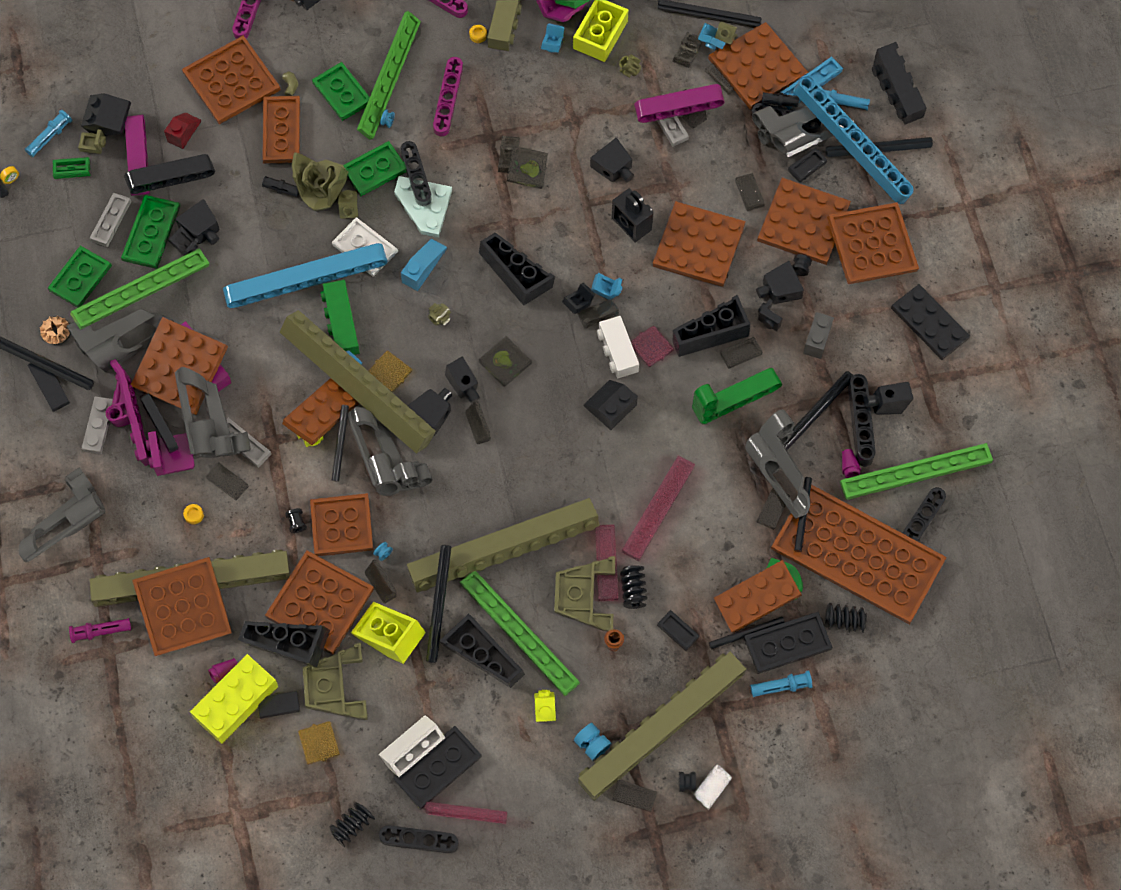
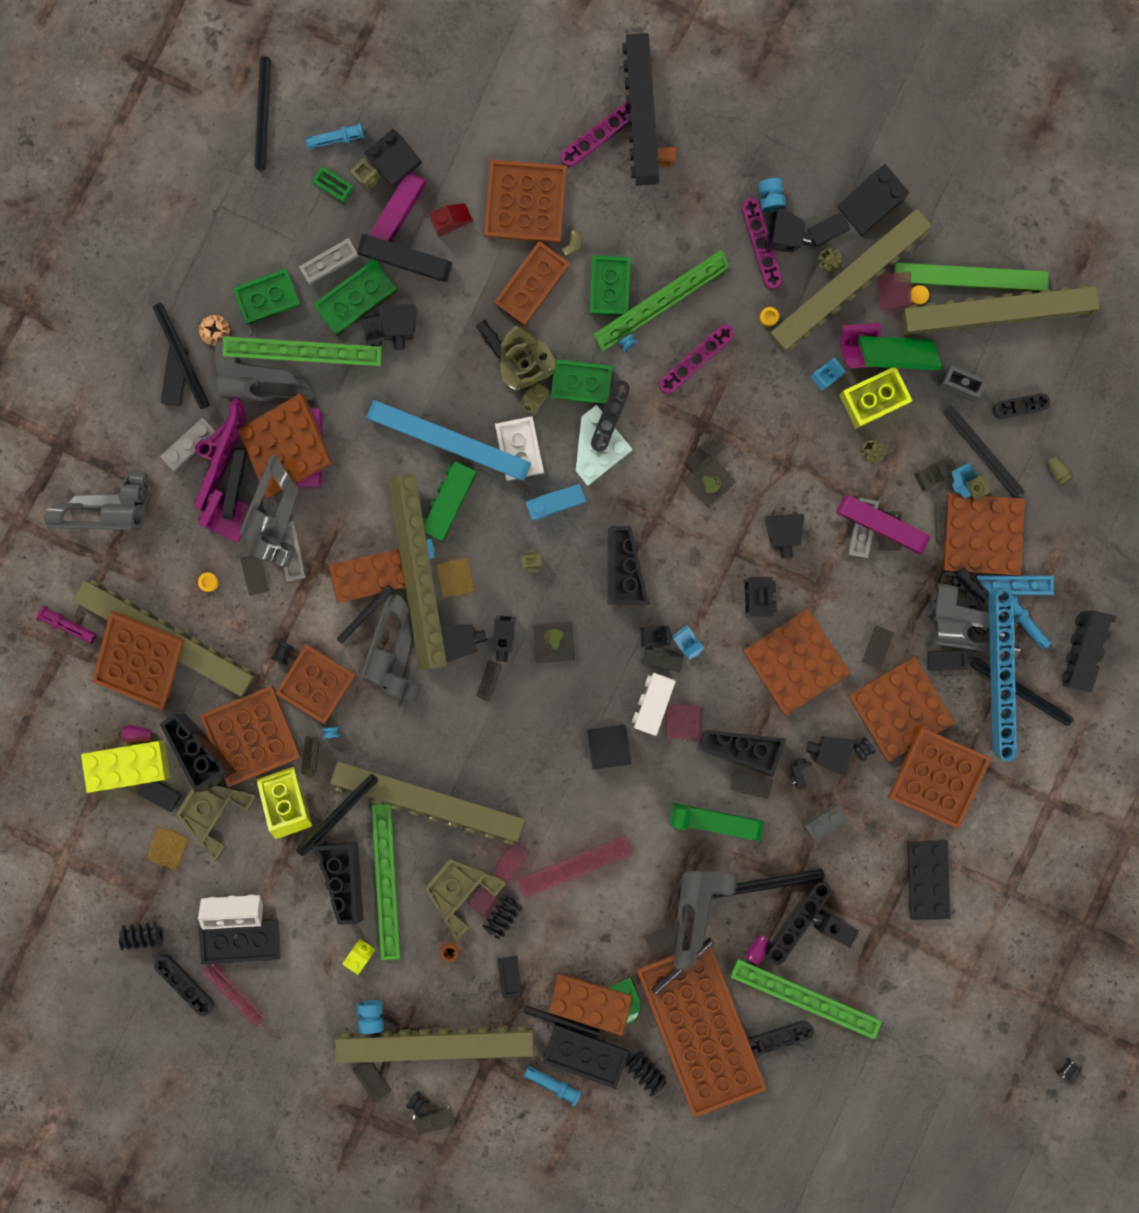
camera: 35 degrees right, 20 degrees up
(9, 175) = (275, 153): yellow tile -> none

